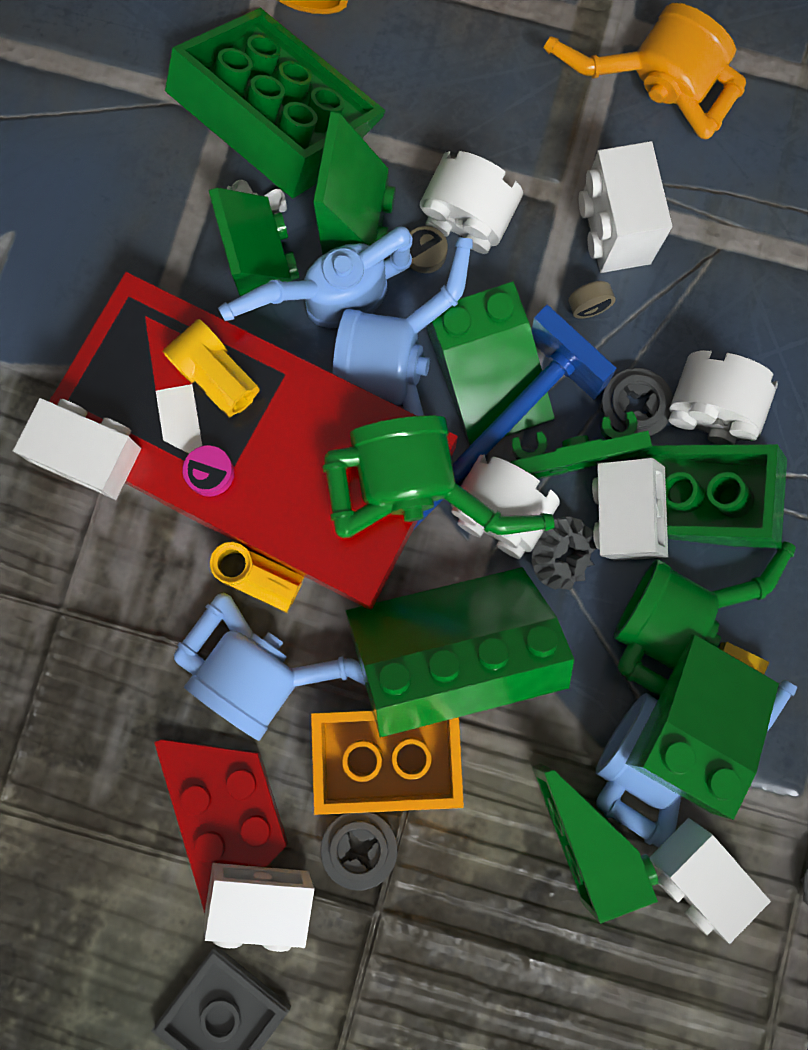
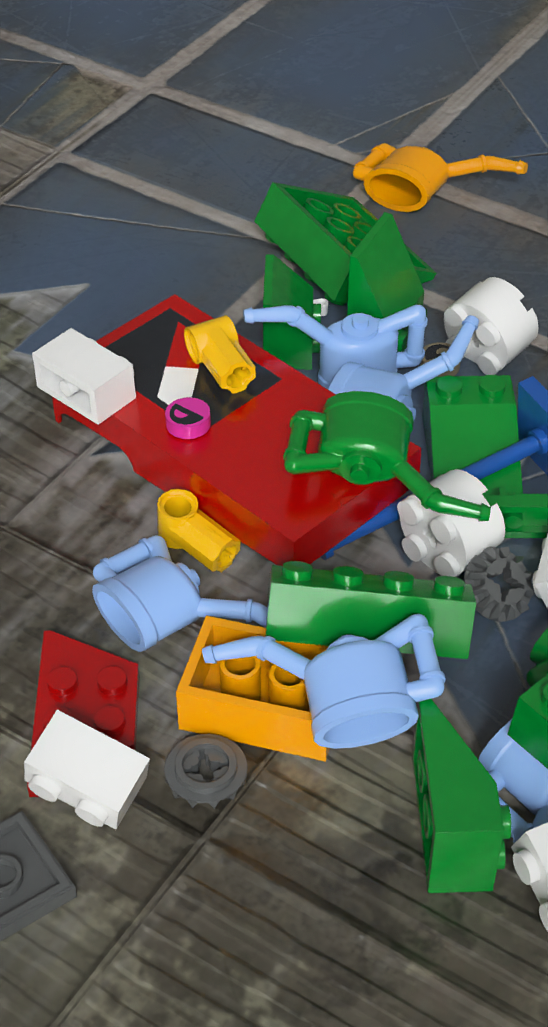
camera: 20 degrees right, 35 degrees down
(485, 776) = (358, 684): none -> light blue piece

